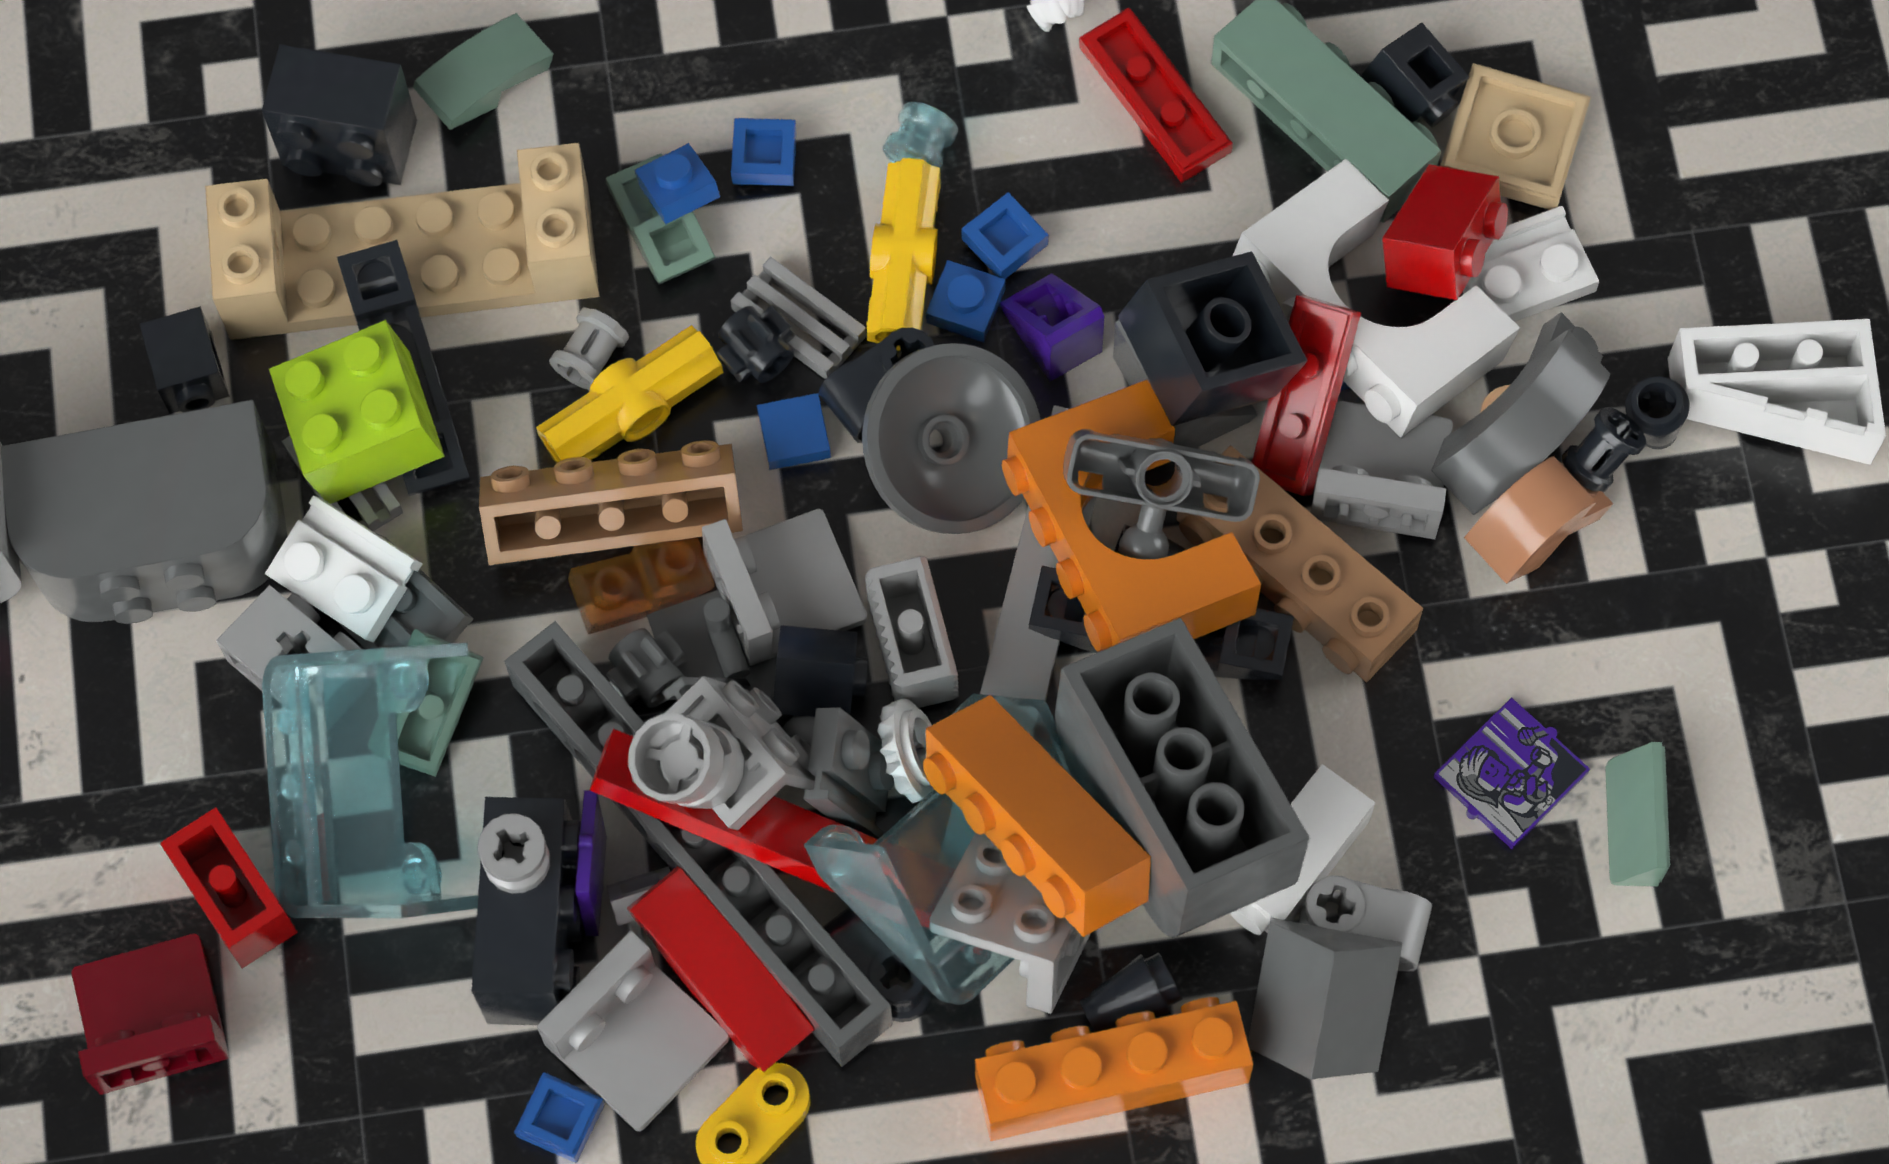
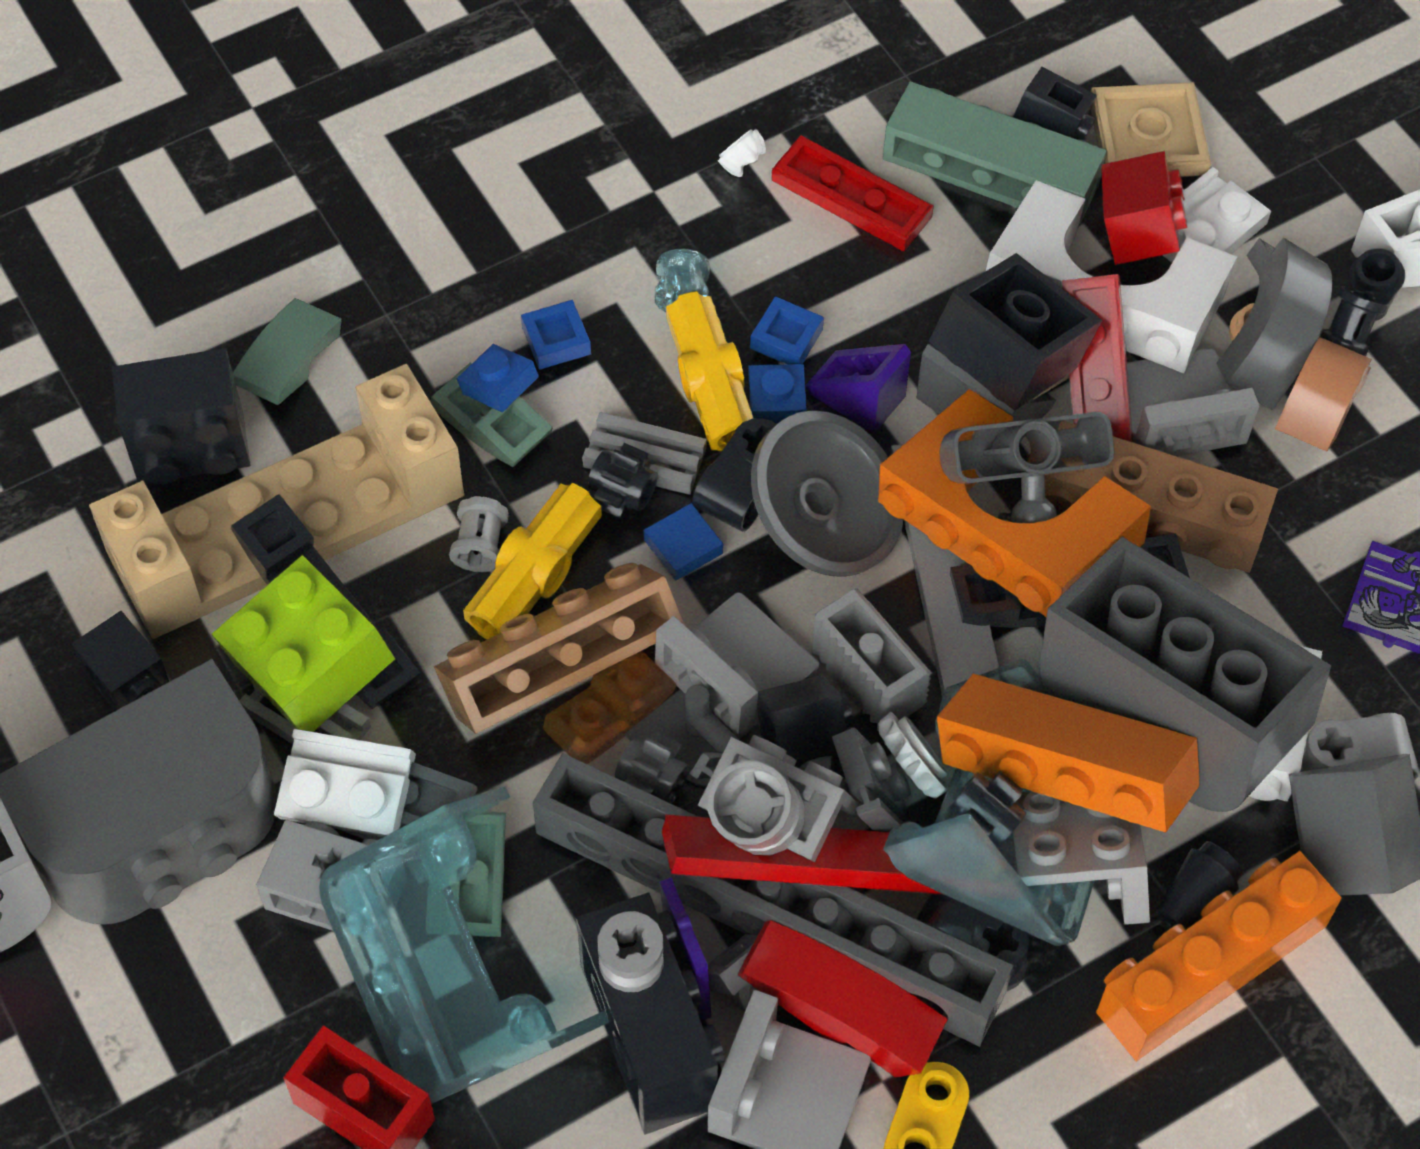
camera: 25 degrees left, 10 degrees down
(932, 842) = (990, 805): none -> black gear

